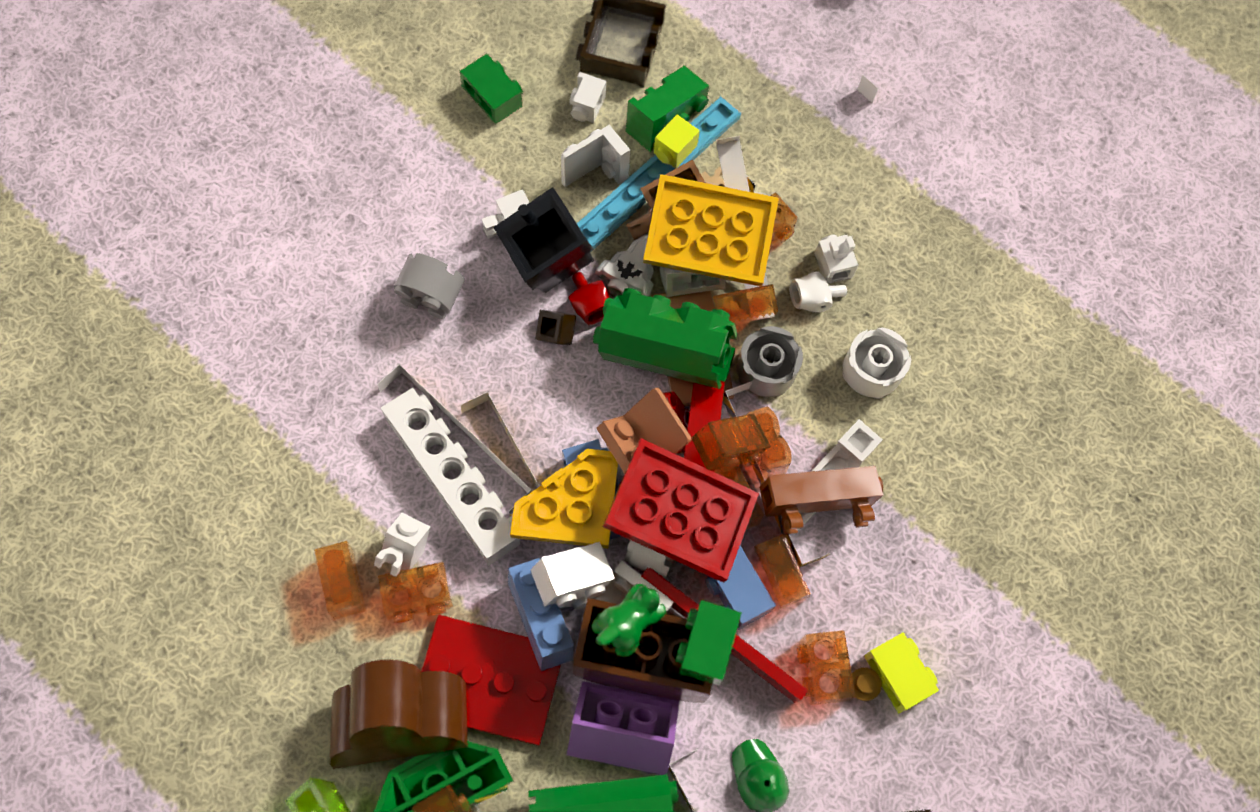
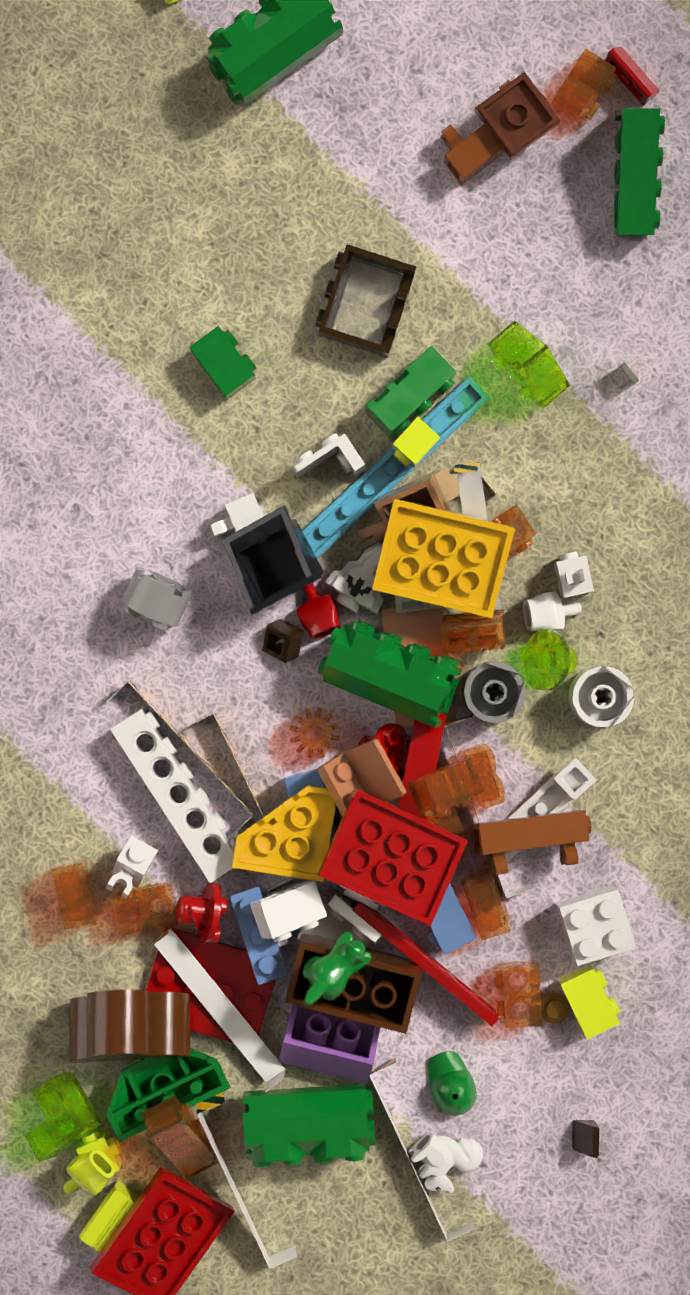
camera: 10 degrees right, 20 degrees up
(479, 590) = (203, 912): none -> red plate
(498, 695) = (220, 1008): none -> white sticker
(578, 407) = (305, 728): none -> clear orange gear
(587, 97) = (325, 377): white brick -> none
(709, 642) = (407, 993): green brick -> none
(778, 77) = (528, 364): none -> clear neon green brick
(820, 329) = (547, 659): none -> clear neon green plate
(898, 589) = (595, 925): none -> white brick

